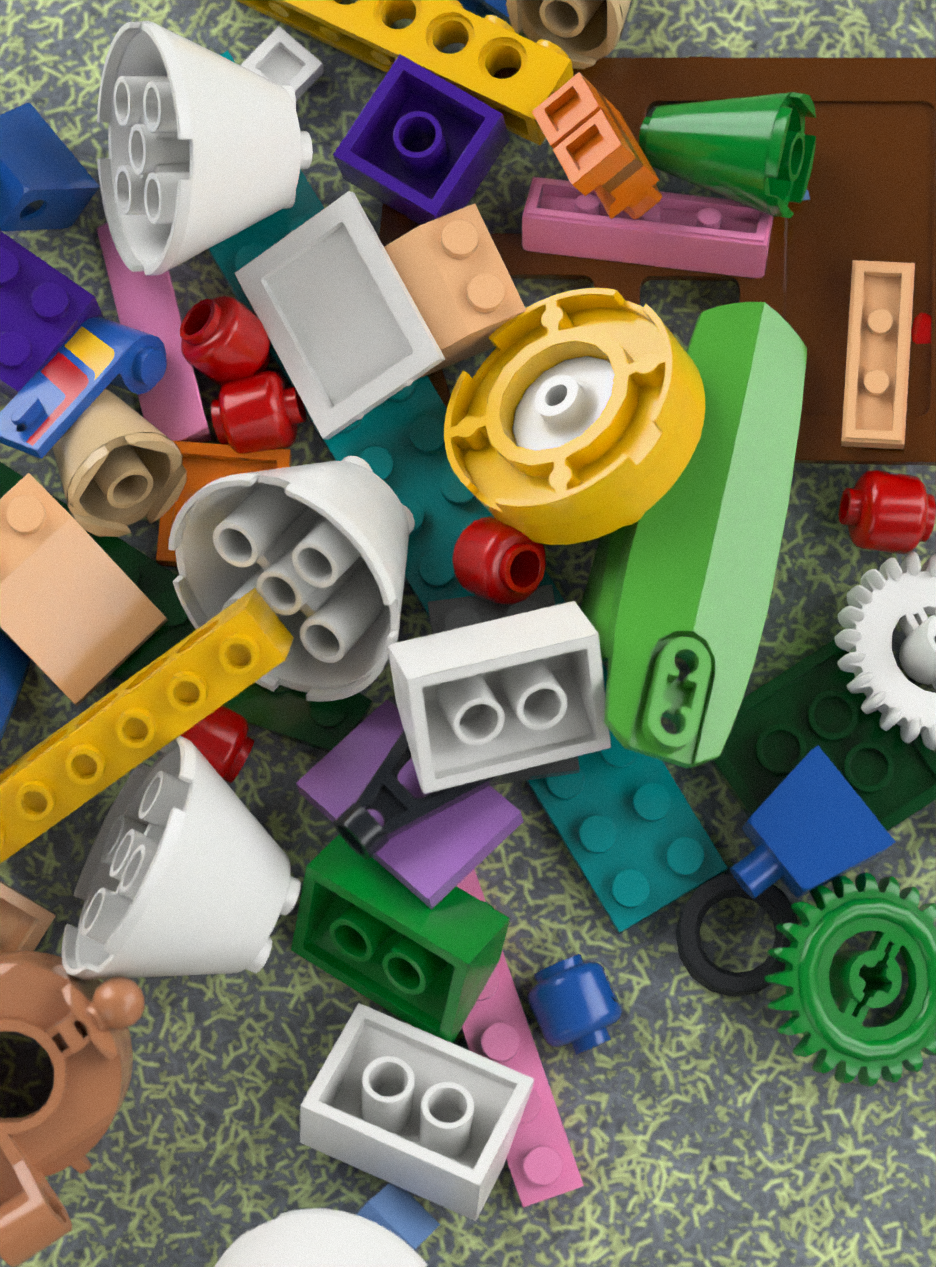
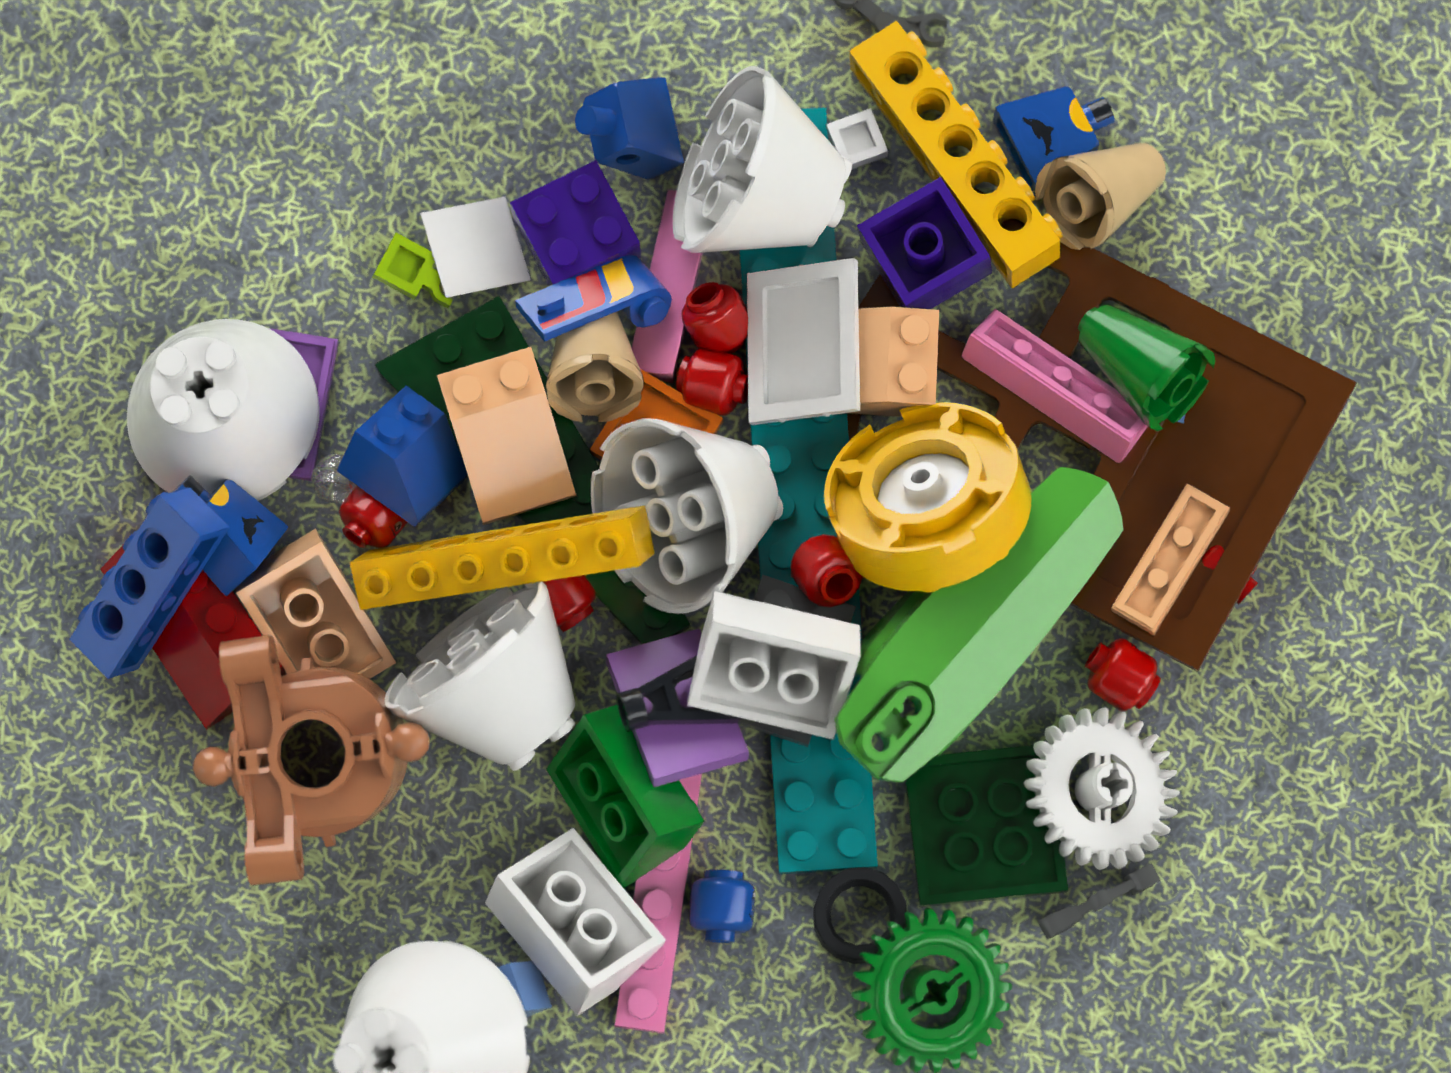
camera: 25 degrees right, 0 degrees up
(598, 148) = (1044, 314): orange hips -> none
(809, 831) = (943, 868): blue torso -> none

